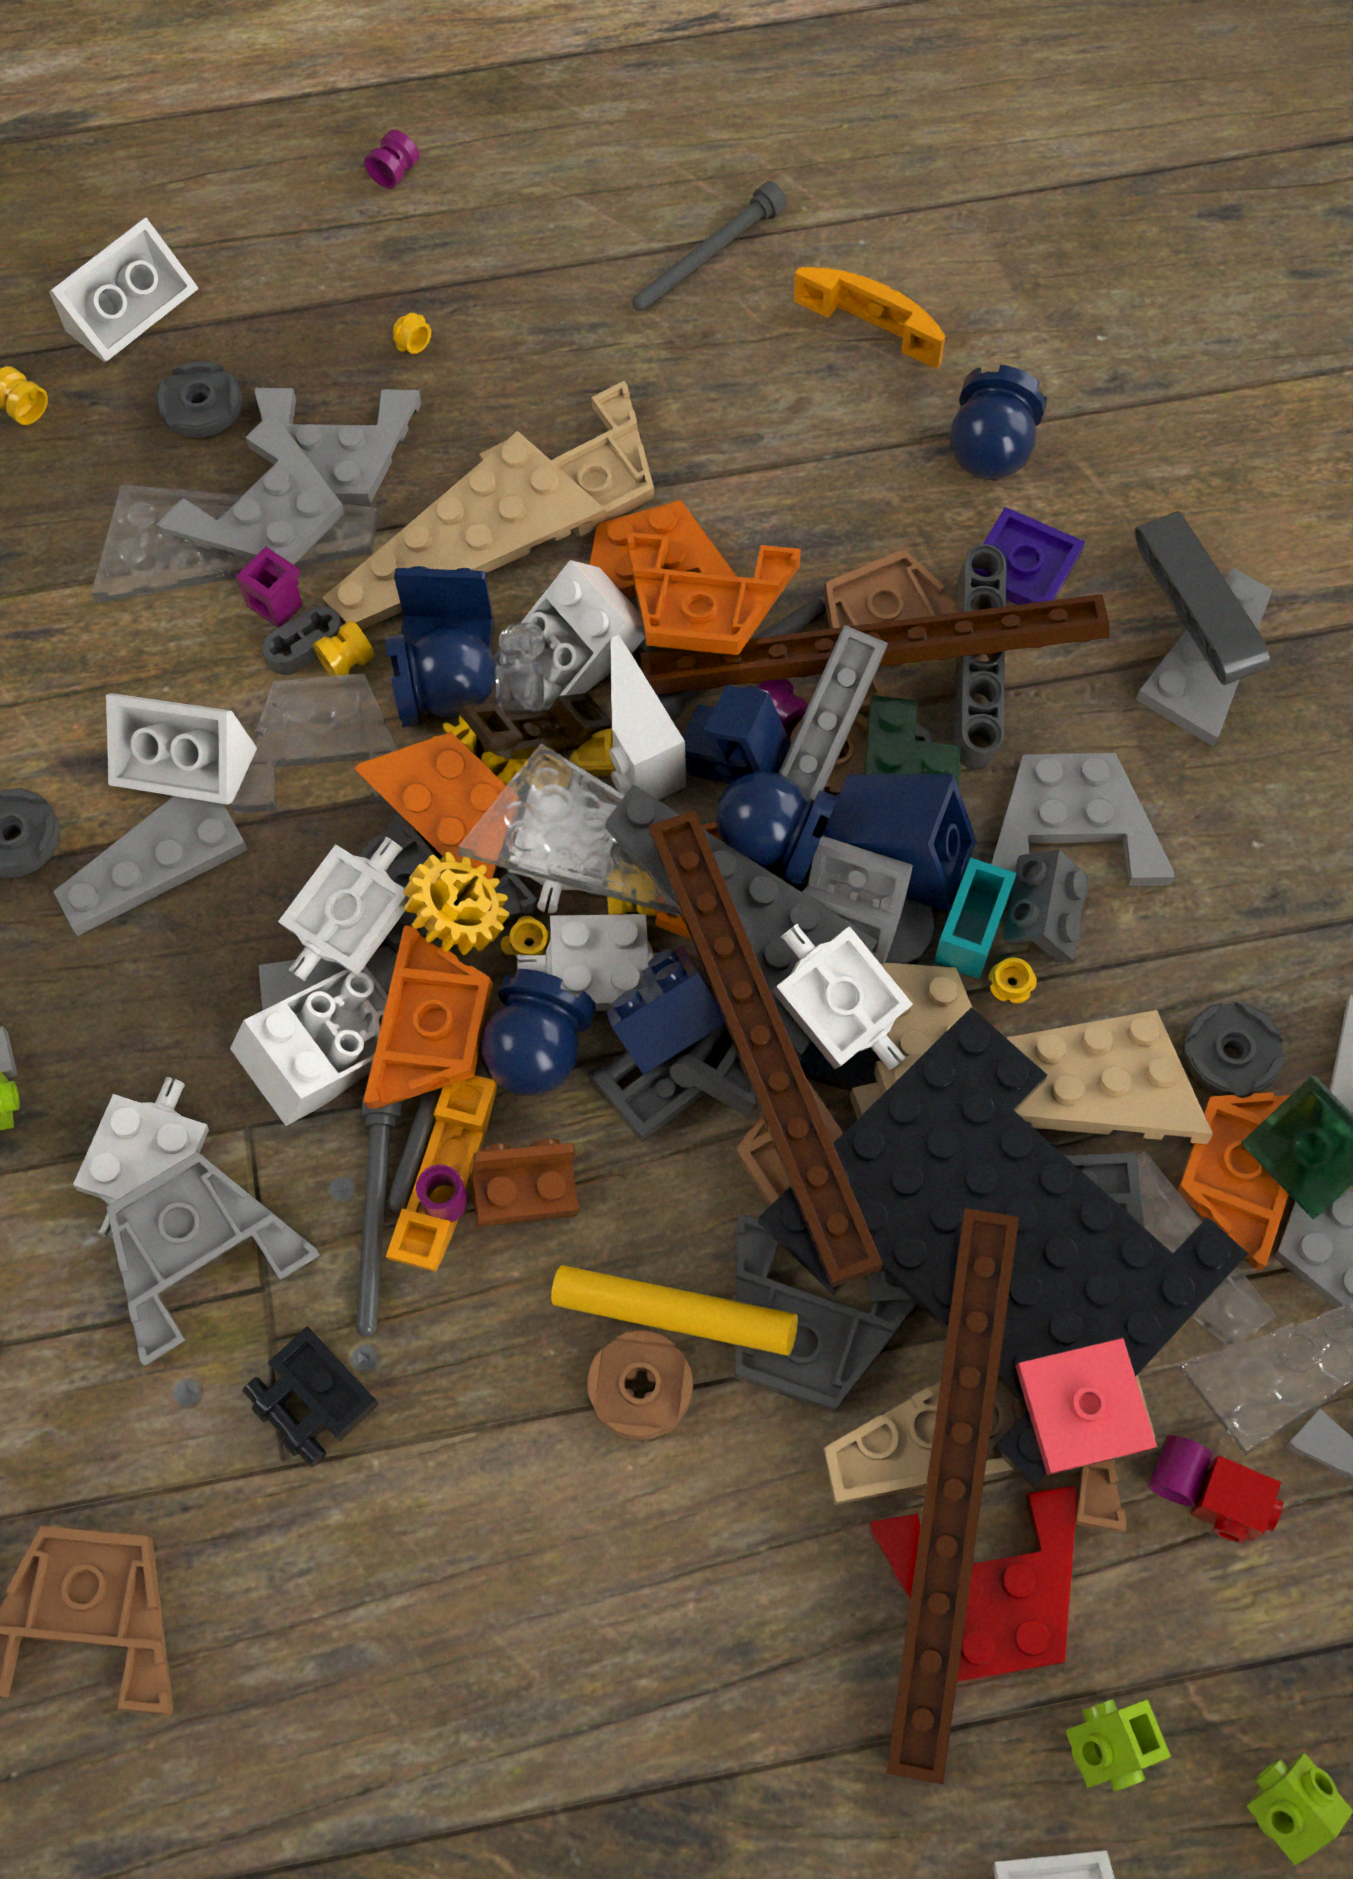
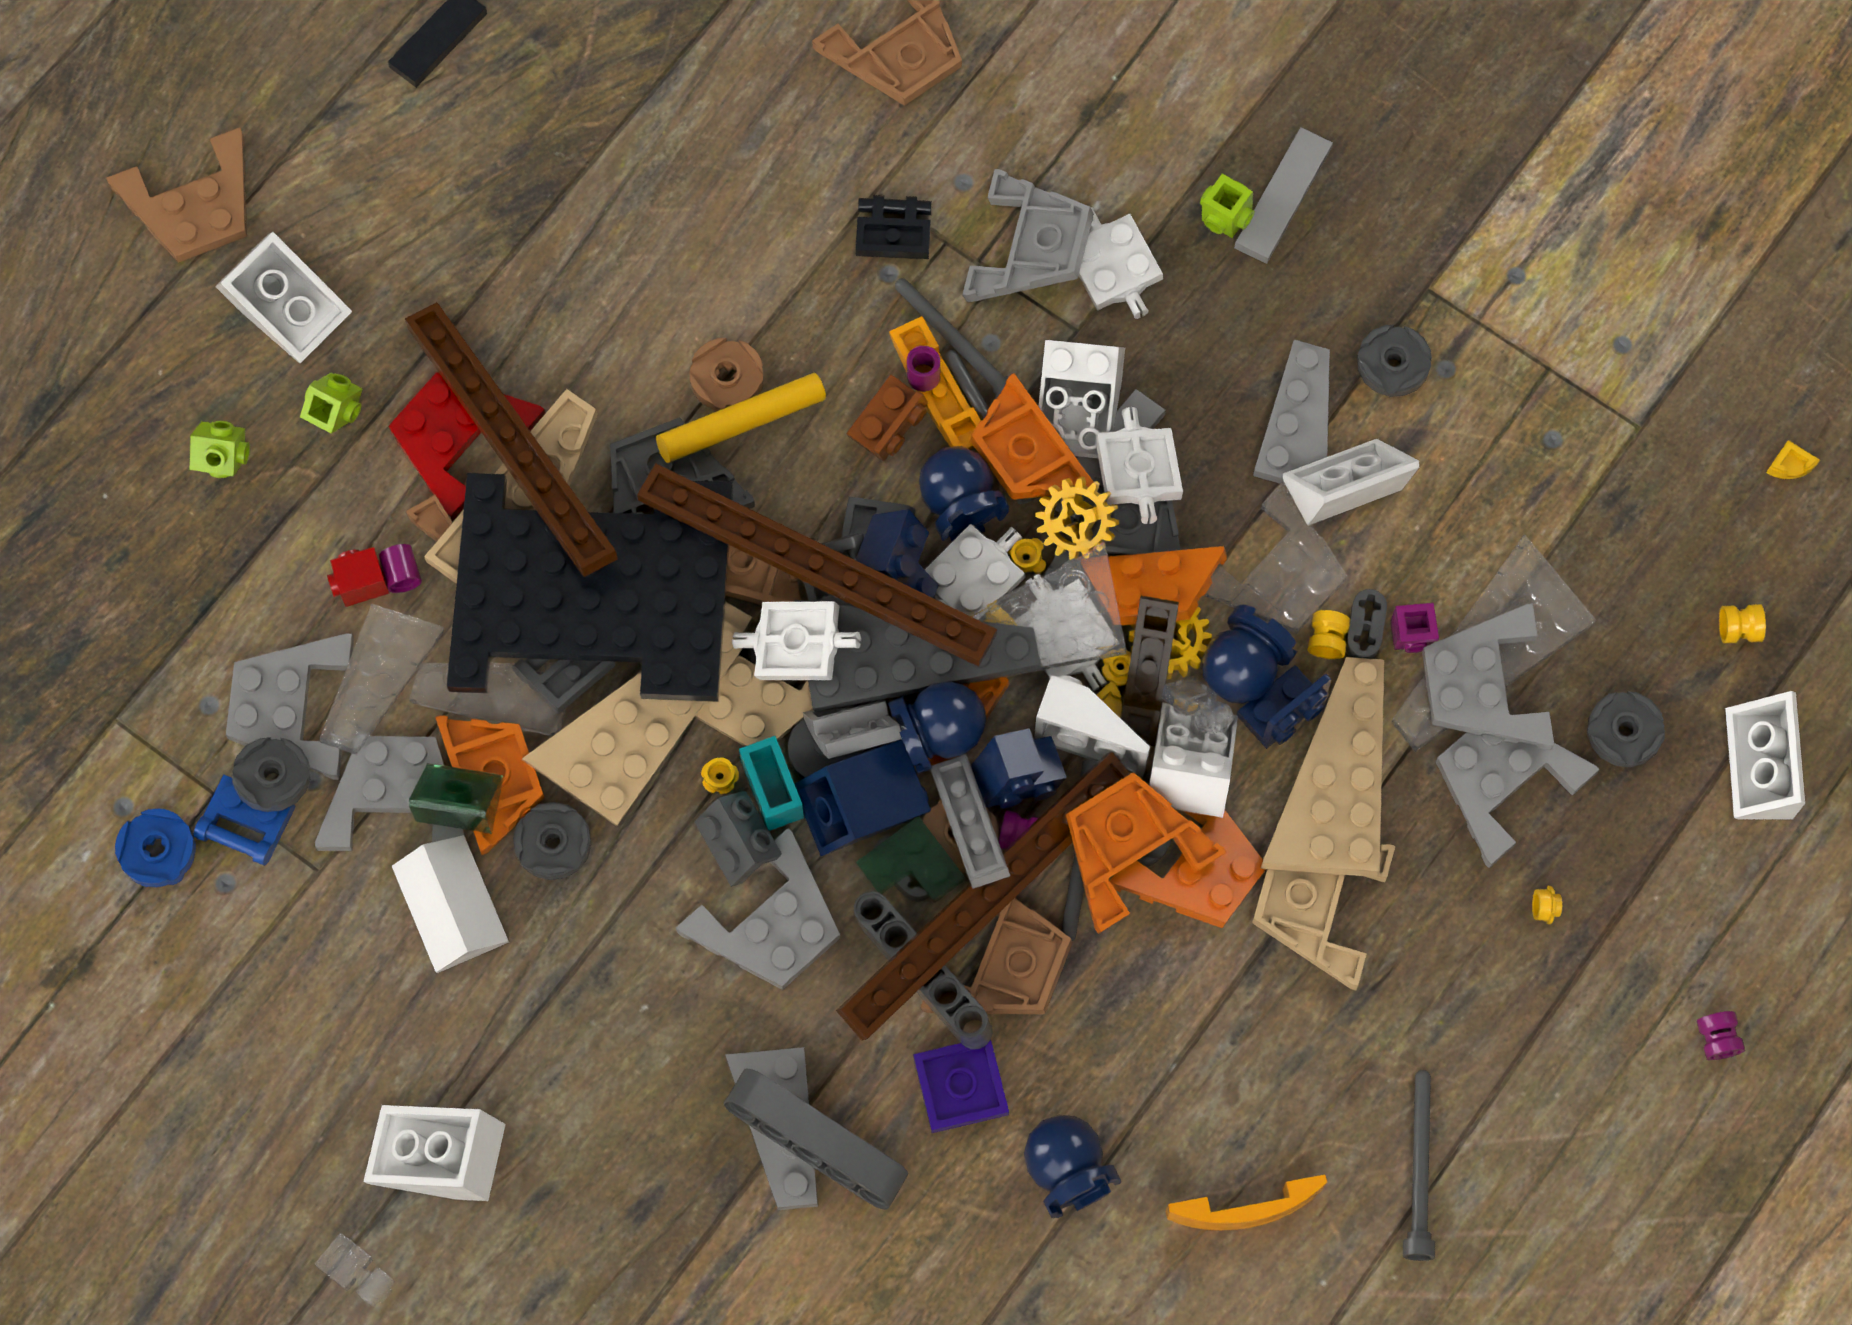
camera: 135 degrees right, 5 degrees up
(1085, 1406) = (471, 524): coral plate -> none

